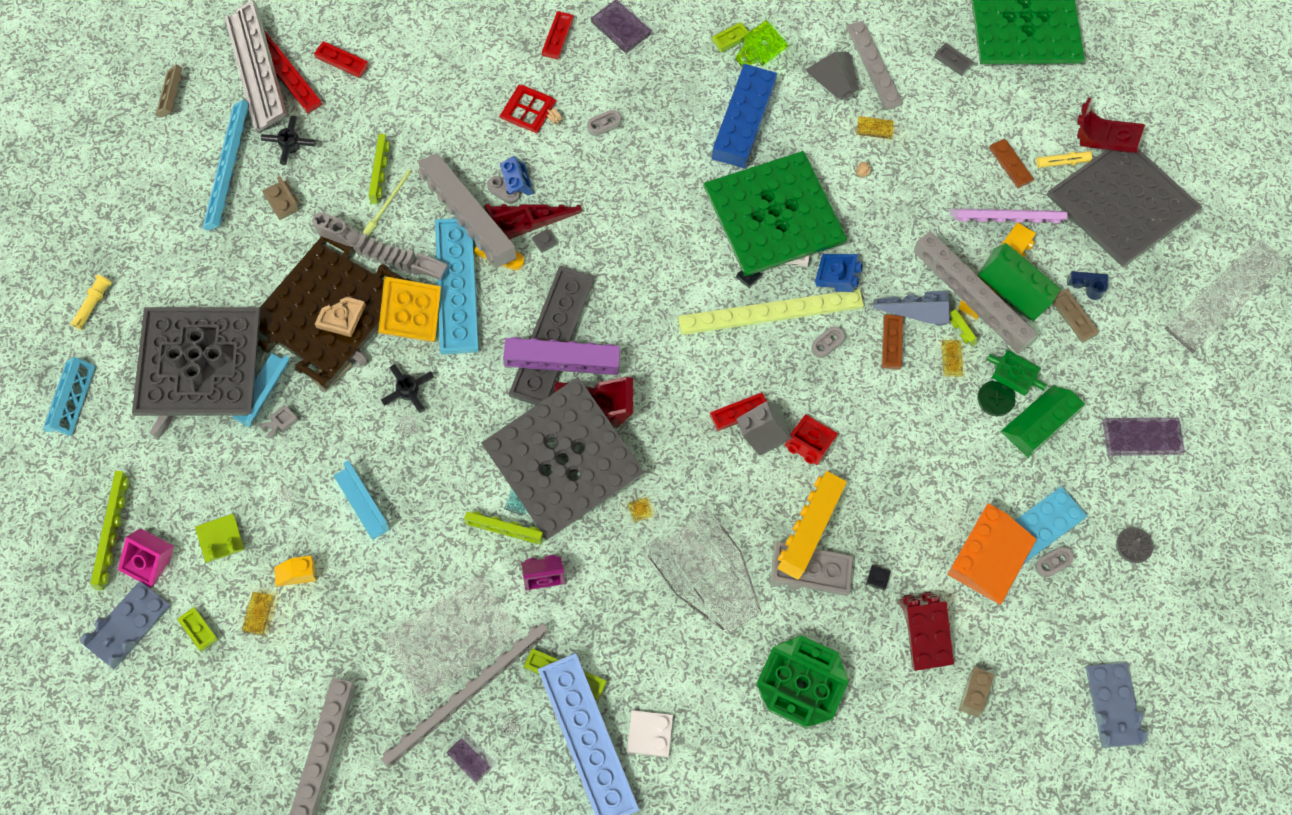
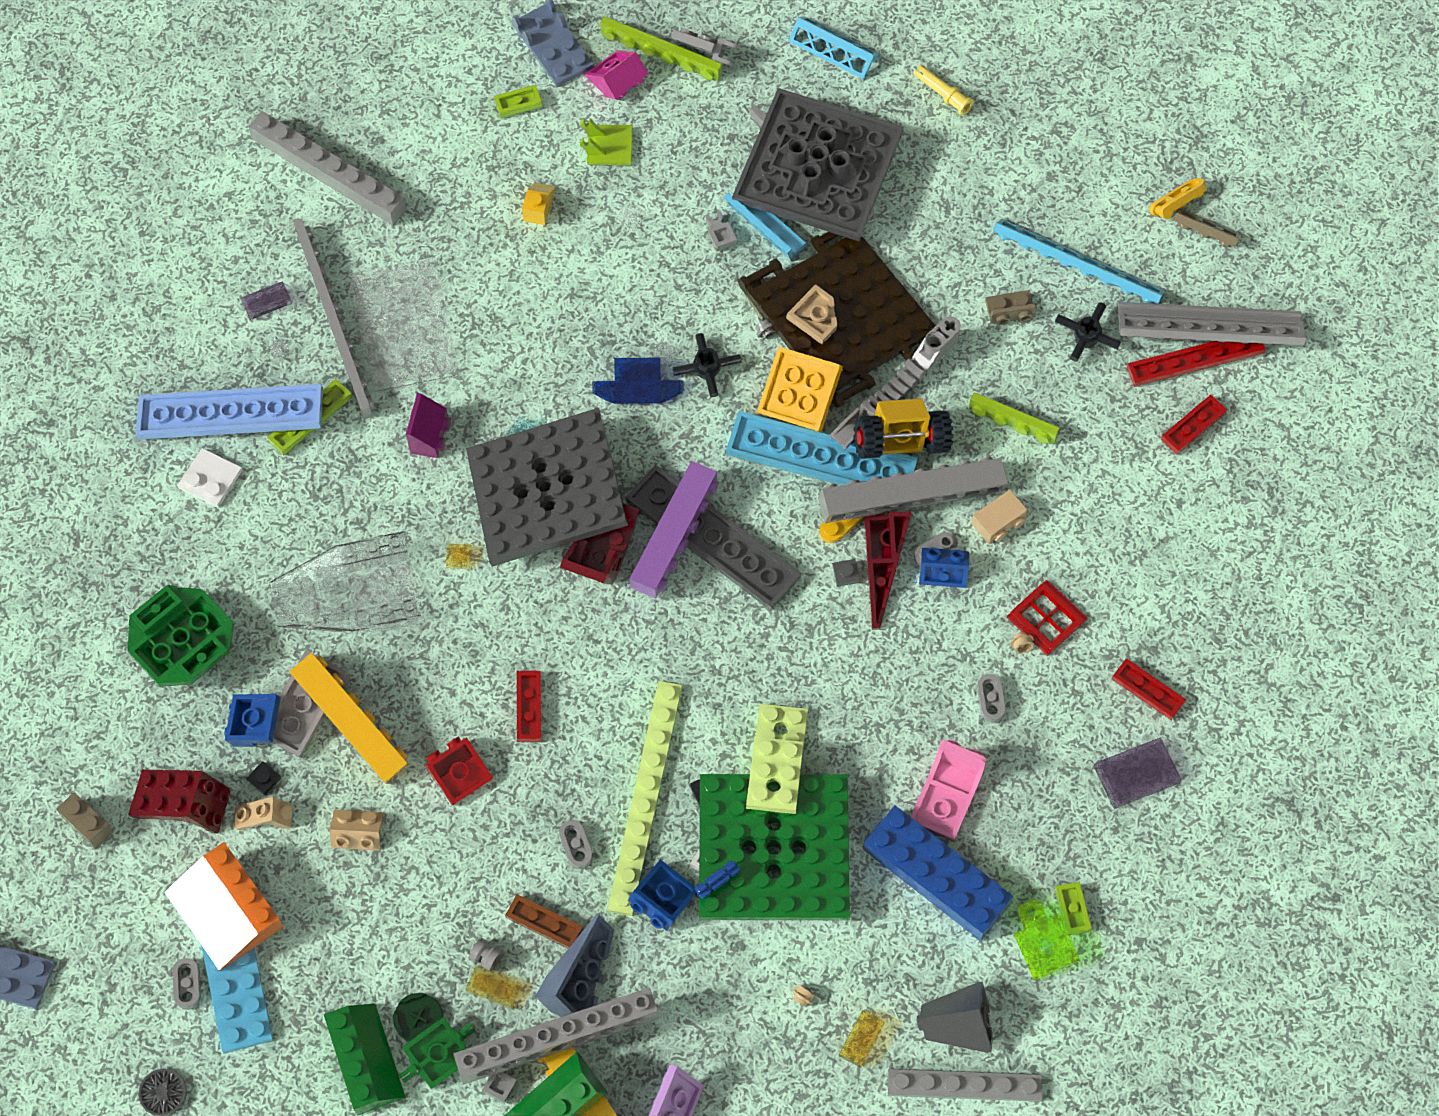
camera: 115 degrees right, 0 degrees up
(98, 490) = (705, 43): none -> light grey plate
(148, 114) = (1178, 198): none -> yellow plate
(257, 613) = (509, 157): clear yellow plate -> none
(361, 501) = (591, 284): medium azure fence -> none
(372, 224) = (940, 393): yellowish green piece -> none
(418, 231) = (902, 428): none -> brick
(441, 433) = (637, 383): none -> clear blue plate
(463, 155) = (999, 517): none -> tan brick
(498, 526) = (492, 415): lime plate -> none
(684, 127) = (949, 789): none -> bright pink bracket
(710, 231) = (777, 759): none -> yellowish green bracket
(764, 427) = (491, 717): dark grey slope -> none
(819, 231) = (717, 879): none -> blue axle
(842, 599) = (252, 719): none -> blue plate
(885, 493) = (356, 829): none -> tan bracket
(908, 563) = (264, 811): none -> tan bracket
(933, 367) = (486, 954): none -> light grey wheel
(957, 322) = (523, 1016): lime plate -> none

